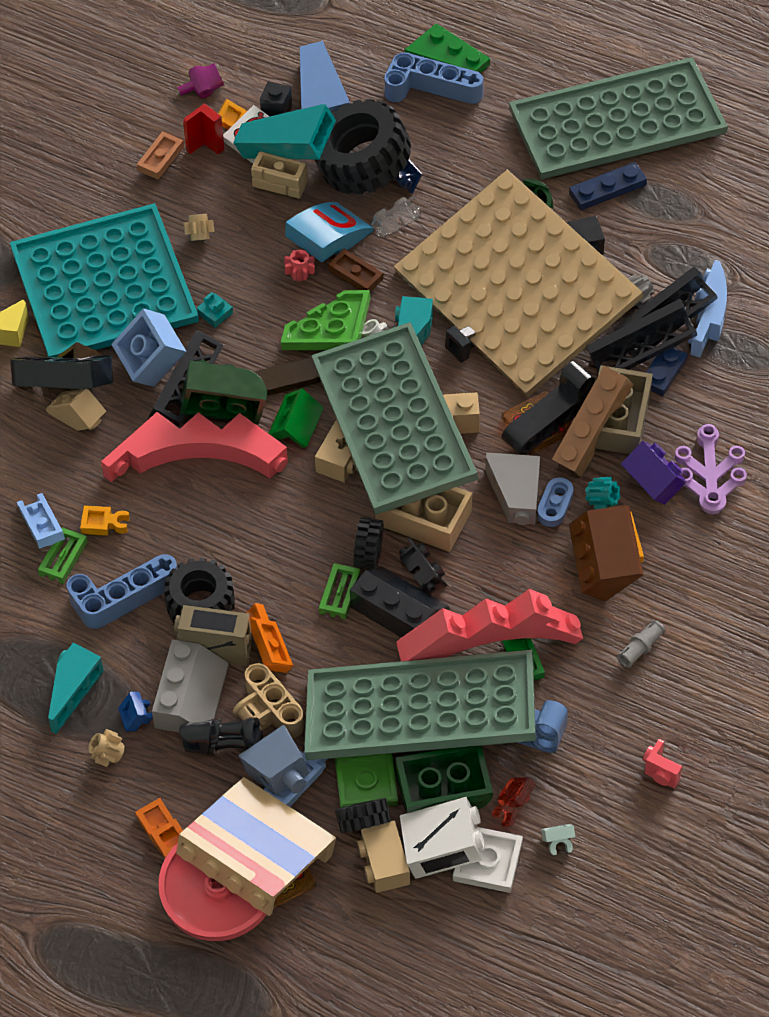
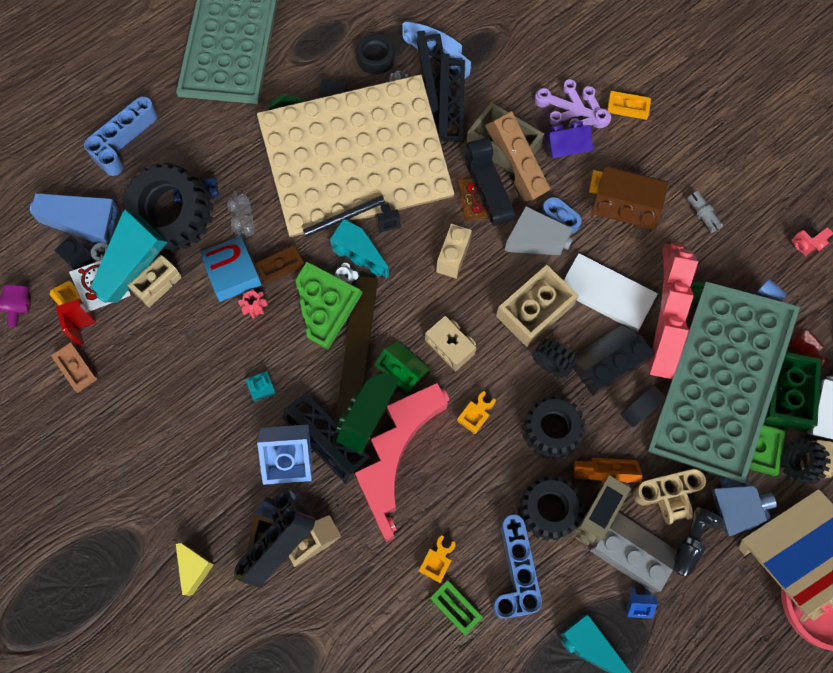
camera: 70 degrees left, 15 degrees up
(41, 522) = (419, 614): light blue hinge -> none
(99, 276) = (184, 468): teal plate -> none
(106, 747) = (671, 642): tan gear -> none
(159, 826) = (755, 623): orange slope -> none
(199, 227) = (171, 365): tan gear -> none
(273, 499) = (474, 415): none -> light orange plate
(290, 552) = (566, 413): none -> black tyre
(334, 610) = (588, 394): bright green tile -> none
(353, 642) = (643, 406): none -> black tyre
(394, 418) = (455, 290): sand green plate -> none
(429, 573) = (573, 329): black hinge -> none
(438, 300) = (344, 215): none -> black bar
(447, 48) = (94, 113): green wing -> none
(483, 569) = (610, 292): none -> white tile
(602, 493) = (570, 181): teal gear -> none
(607, 186) = (289, 64): dark blue plate -> none
(663, 270) = (375, 41): none -> black tyre
(665, 369) = (474, 100): dark blue plate -> none
(746, 523) = (628, 105): none -> light orange plate

